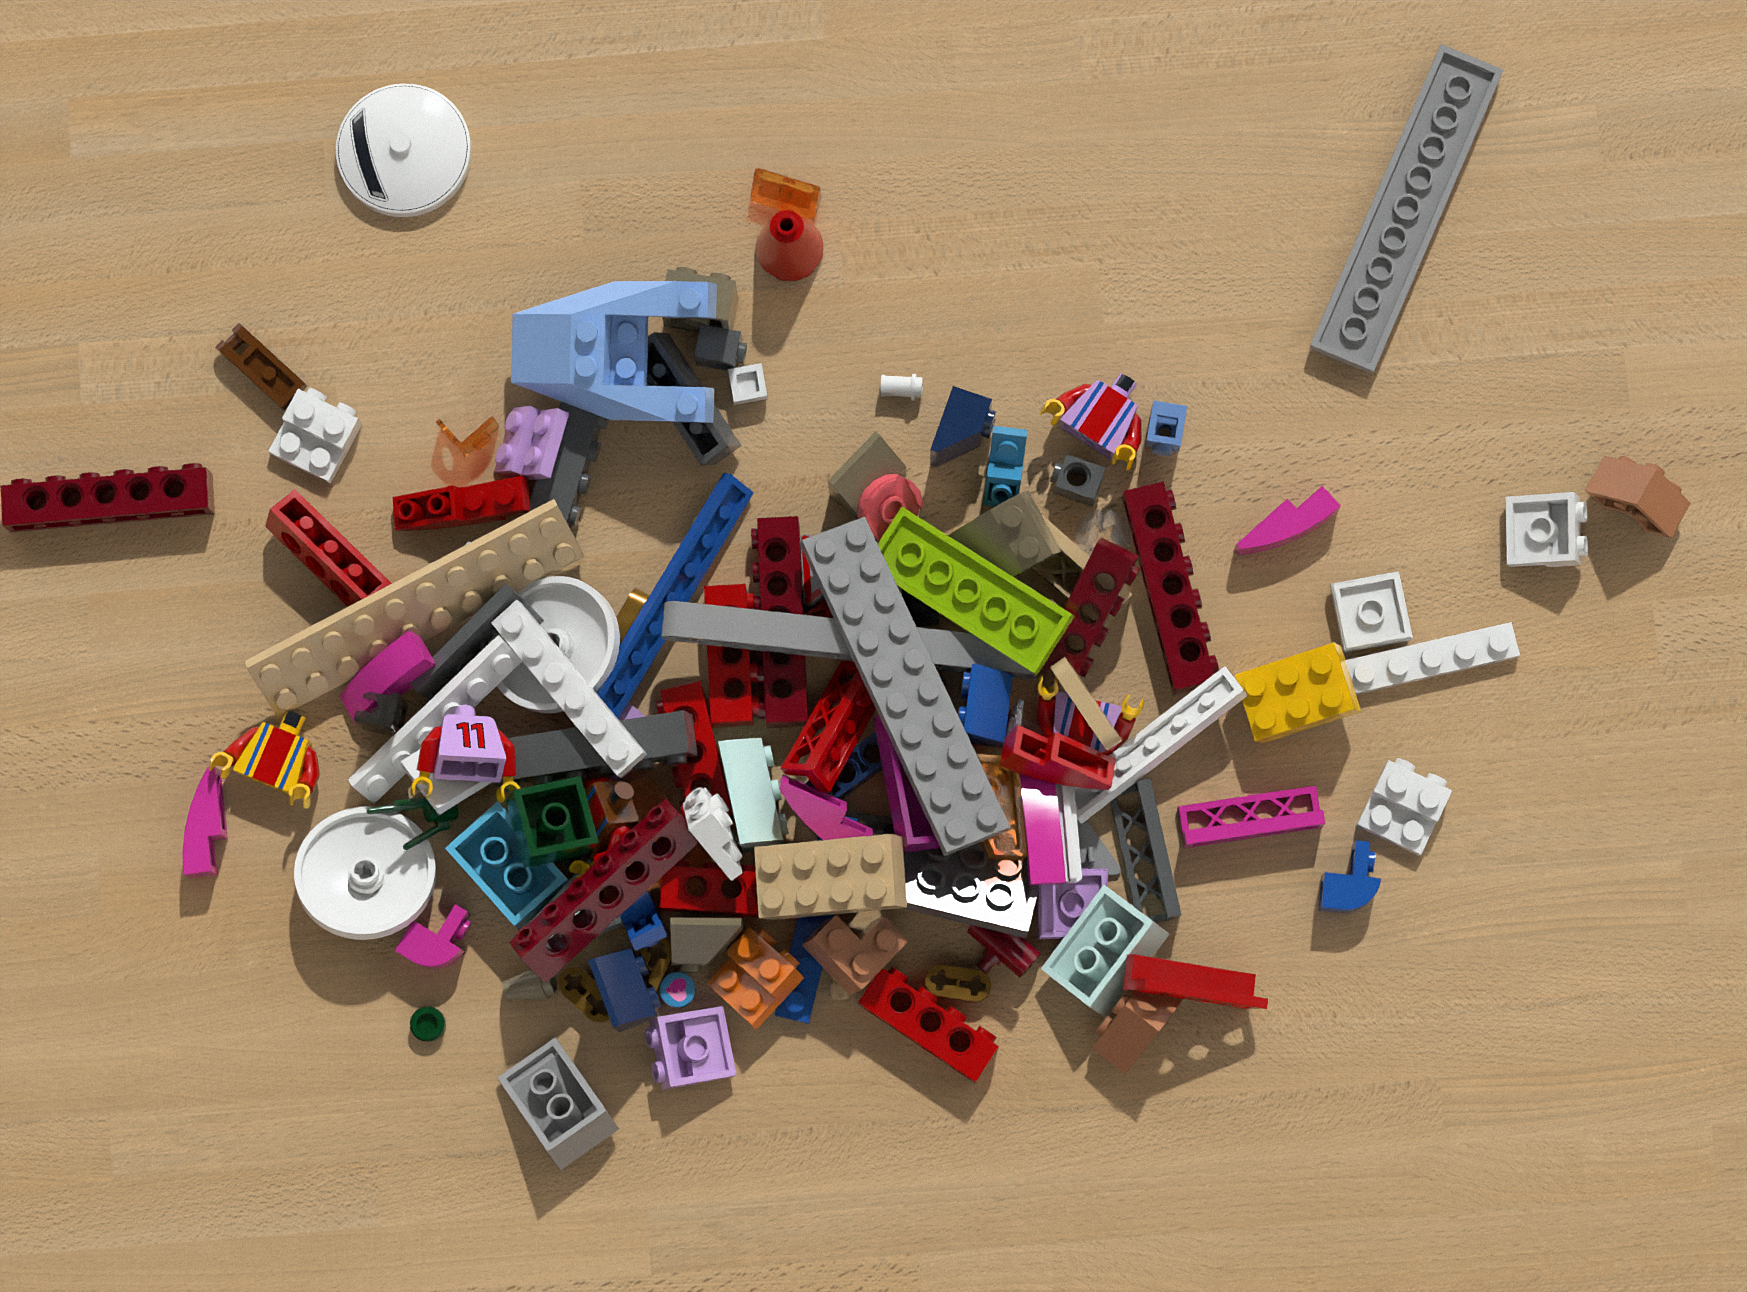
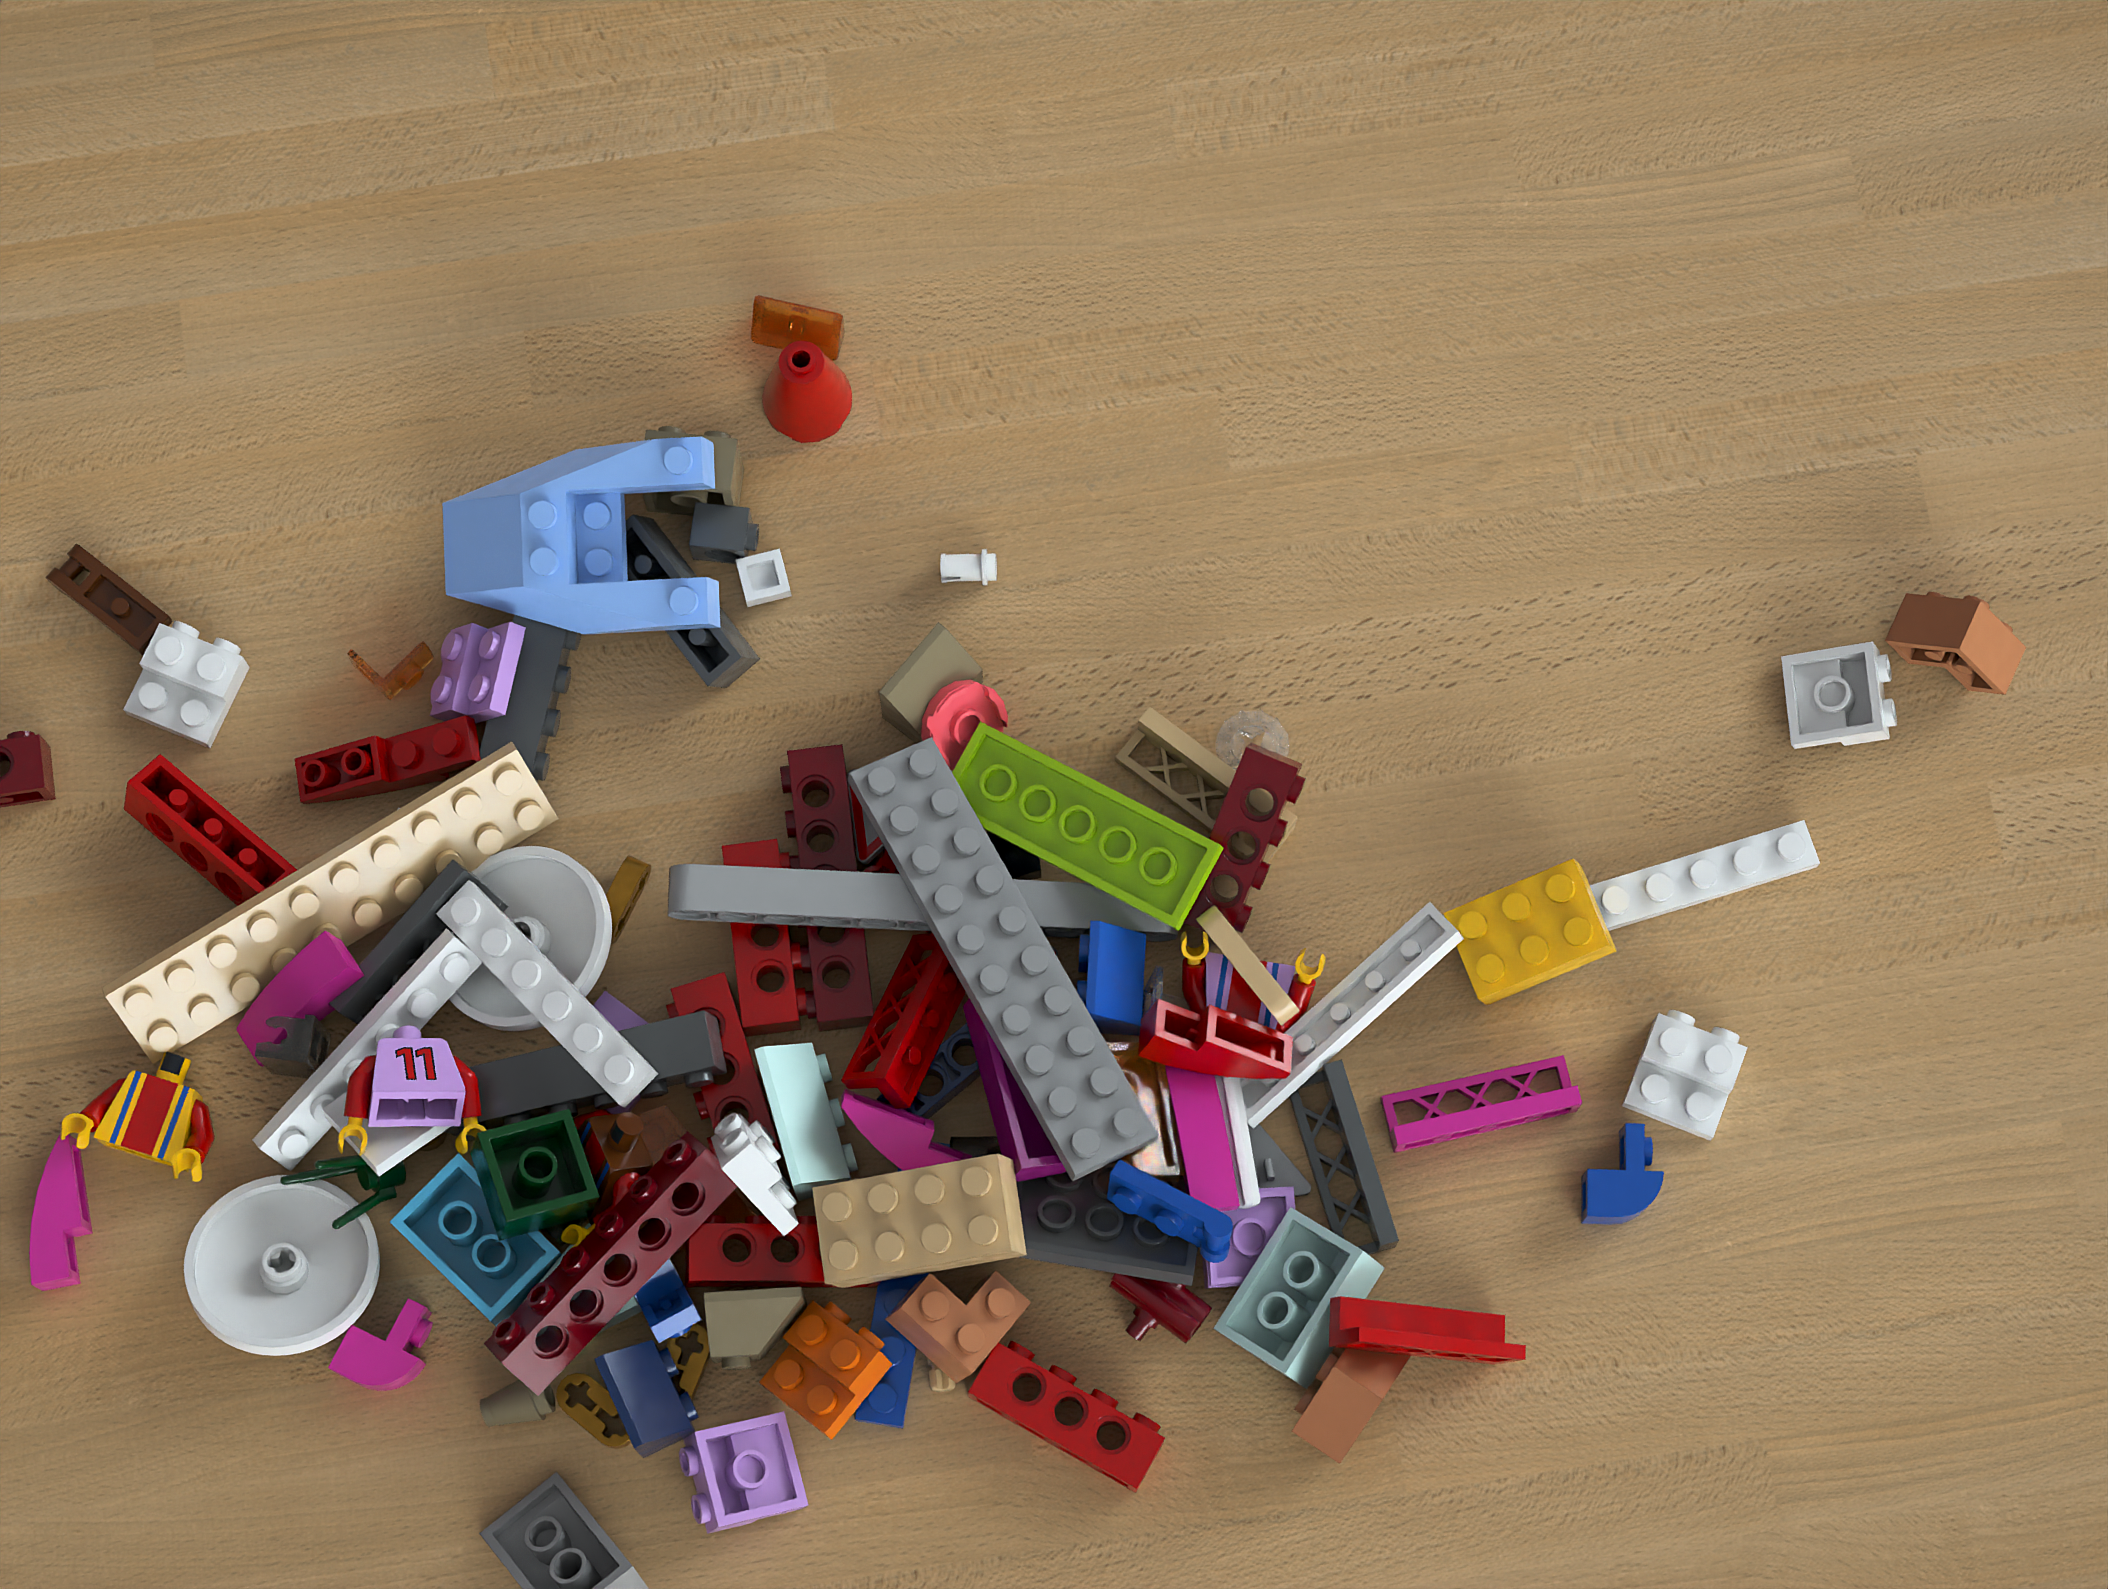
camera: 10 degrees left, 5 degrees down
(403, 150) = (286, 306): white dish -> none
(428, 1024) = (380, 1467): dark green tile -> none
(675, 584) = (686, 841): blue plate -> none
(677, 990) = (720, 1394): dark azure tile -> none
(956, 992) = (1102, 1345): pearl gold beam -> none
(962, 426) = (1053, 611): dark blue slope -> none
(1005, 464) = (1114, 663): dark azure slope -> none
(1010, 535) = (1129, 749): dark tan slope -> none
(1015, 882) = (1171, 1210): none -> blue plate
(1088, 491) = (1219, 691): dark grey brick -> none
(1101, 417) = (1236, 589): torso -> none
(1139, 504) = (1319, 692): dark red brick -> none
(1166, 416) = (1324, 582): medium blue brick -> none
(1289, 523) = (1498, 710): dark pink slope -> none
(1371, 612) = (1617, 819): white plate -> none
(1406, 209) = (1615, 297): light grey plate -> none

